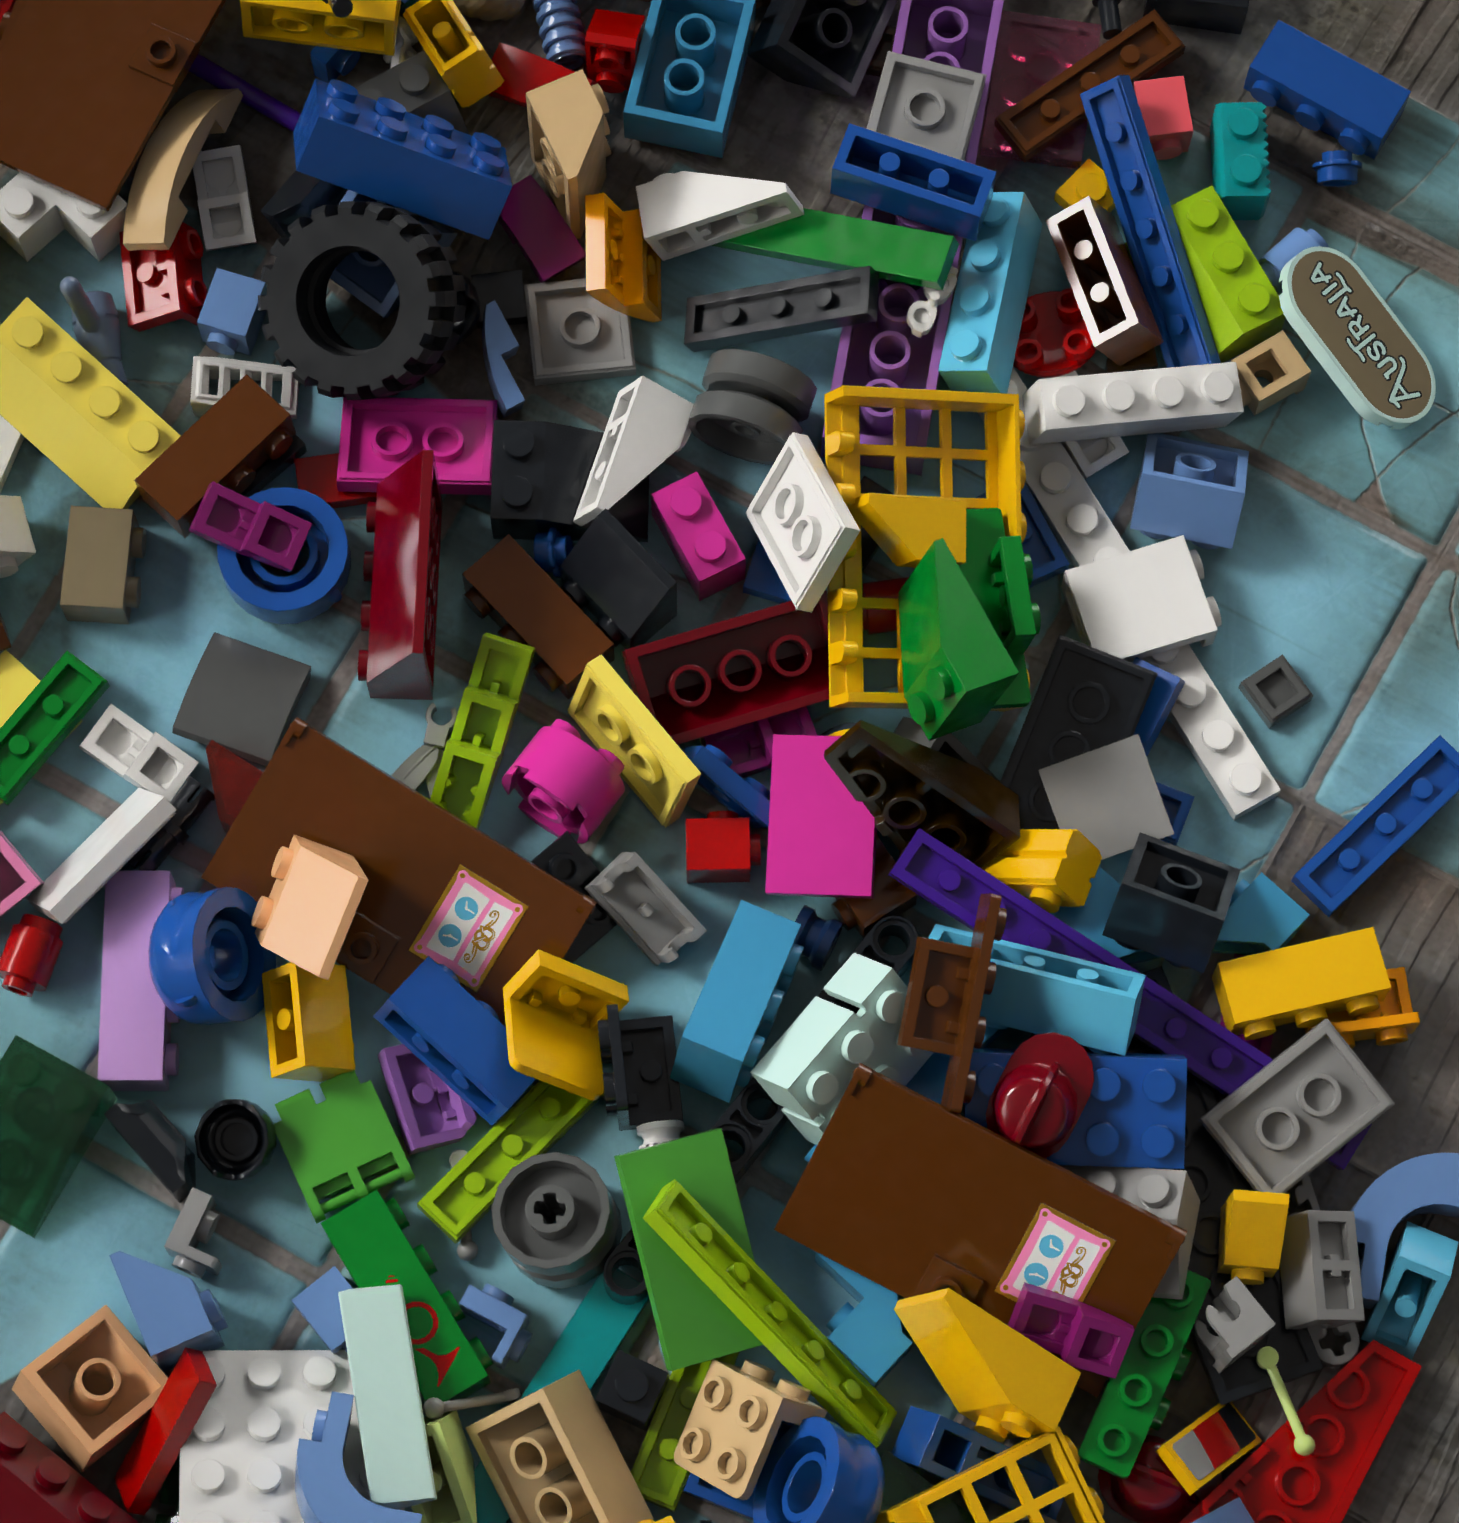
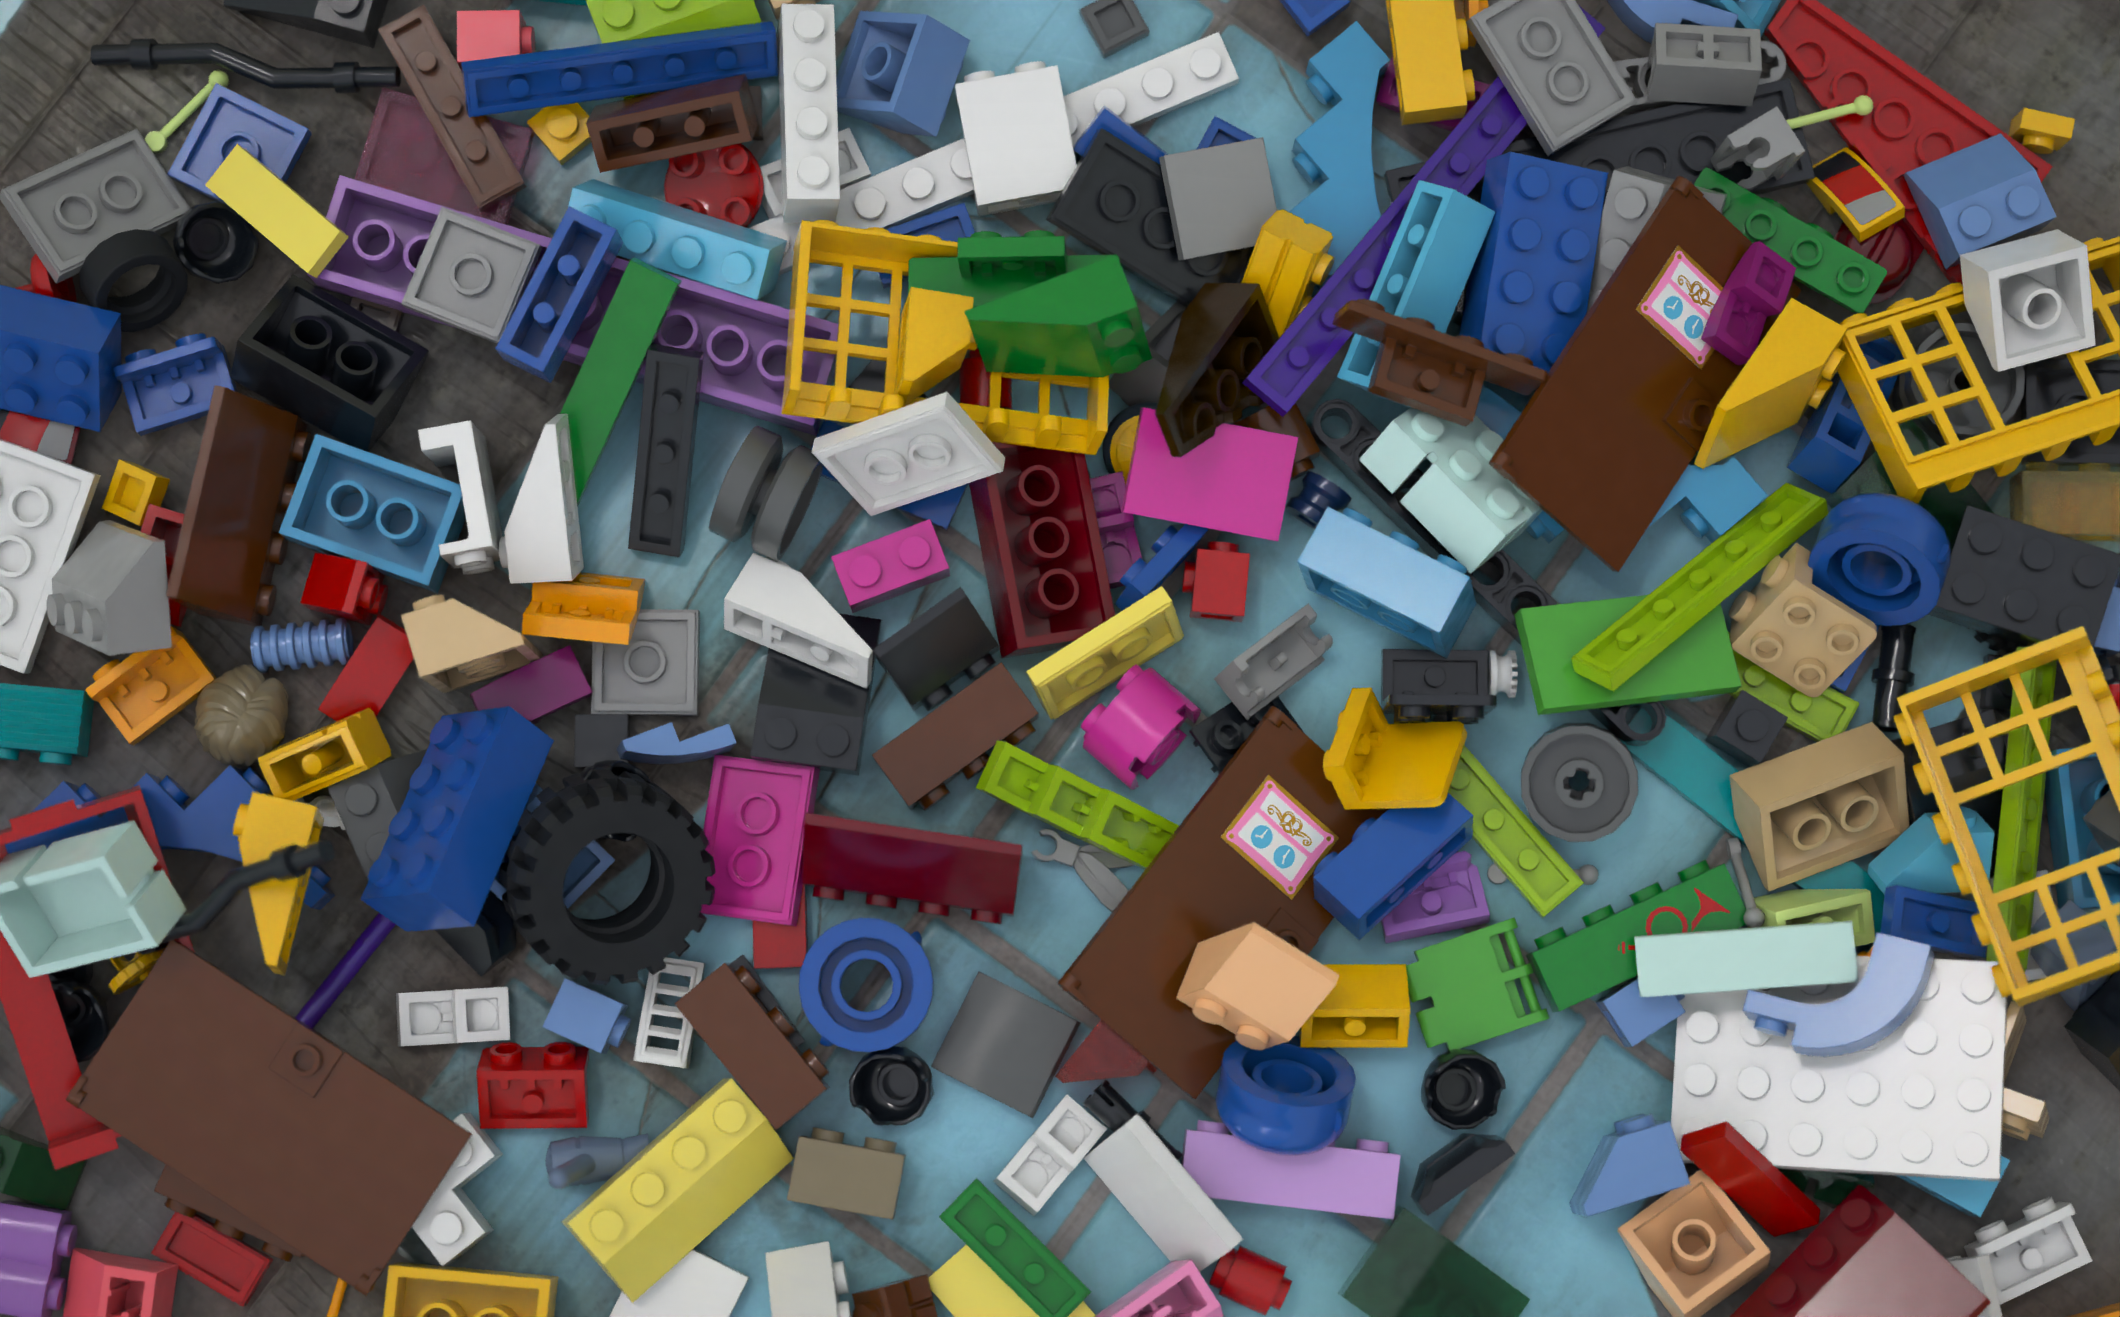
camera: 85 degrees left, 10 degrees up
(153, 201) = (428, 1071): tan slope -> none
(190, 593) = (891, 1086): none -> black hair
(194, 1224) = (1540, 1137): light grey bracket -> none
(250, 527) = (843, 1014): magenta slope -> none
(495, 1310) = (1653, 852): medium blue bracket -> none
(551, 550) = (888, 714): blue plate -> none
(722, 146) = (466, 446): none -> white panel
(923, 313) = (696, 306): white piece -> none
(1041, 1093) = (1529, 295): dark red piece -> none
(1171, 903) = (1337, 147): black slope -> none
(1252, 1235) = (1670, 121): yellow slope -> none

